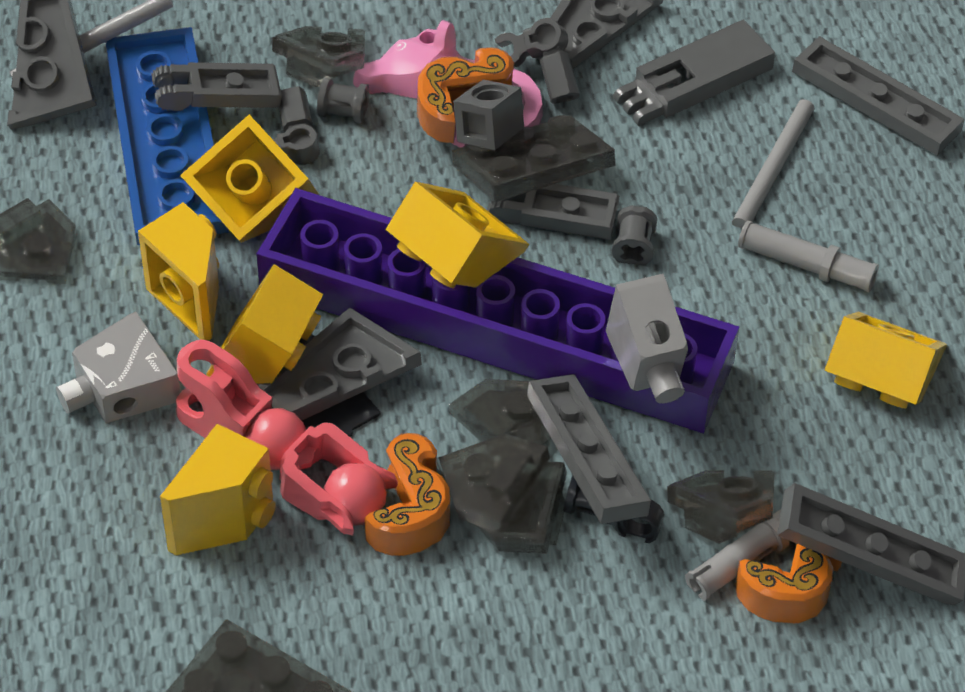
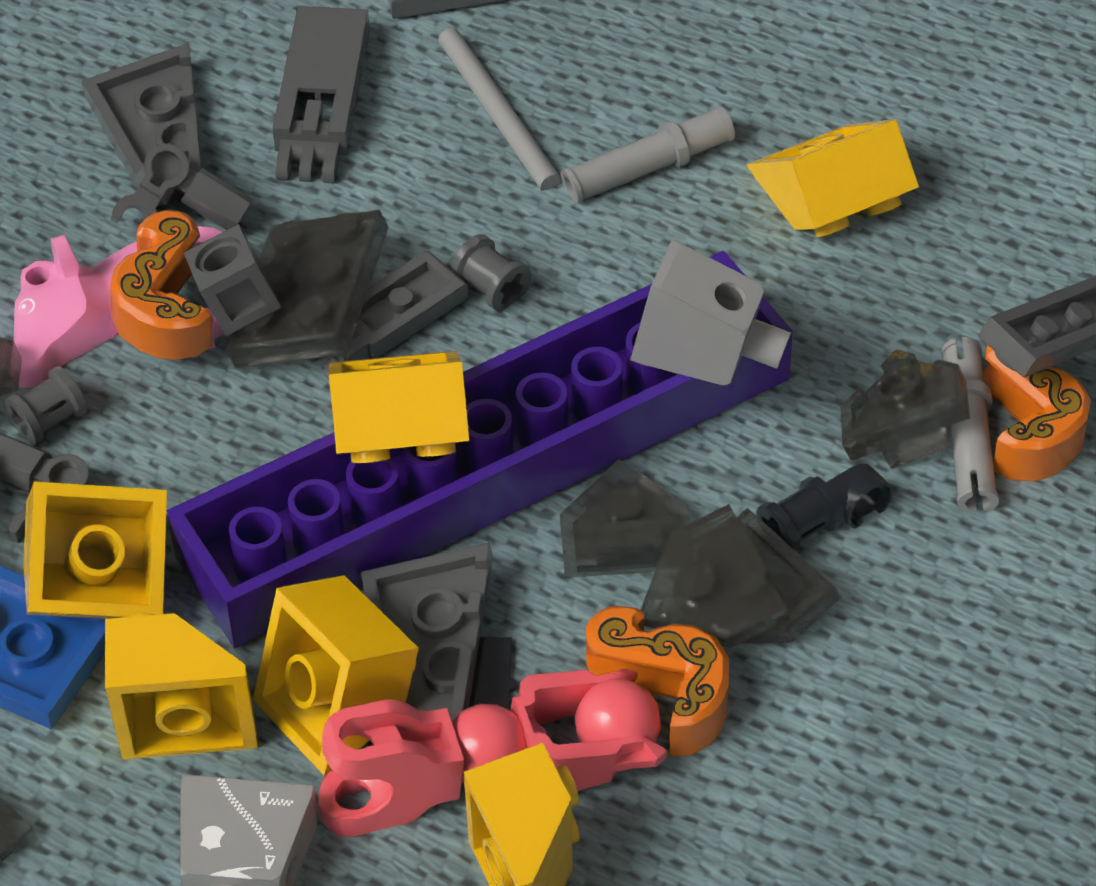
camera: 50 degrees left, 0 degrees up
(588, 449) = (758, 472): dark grey plate -> none

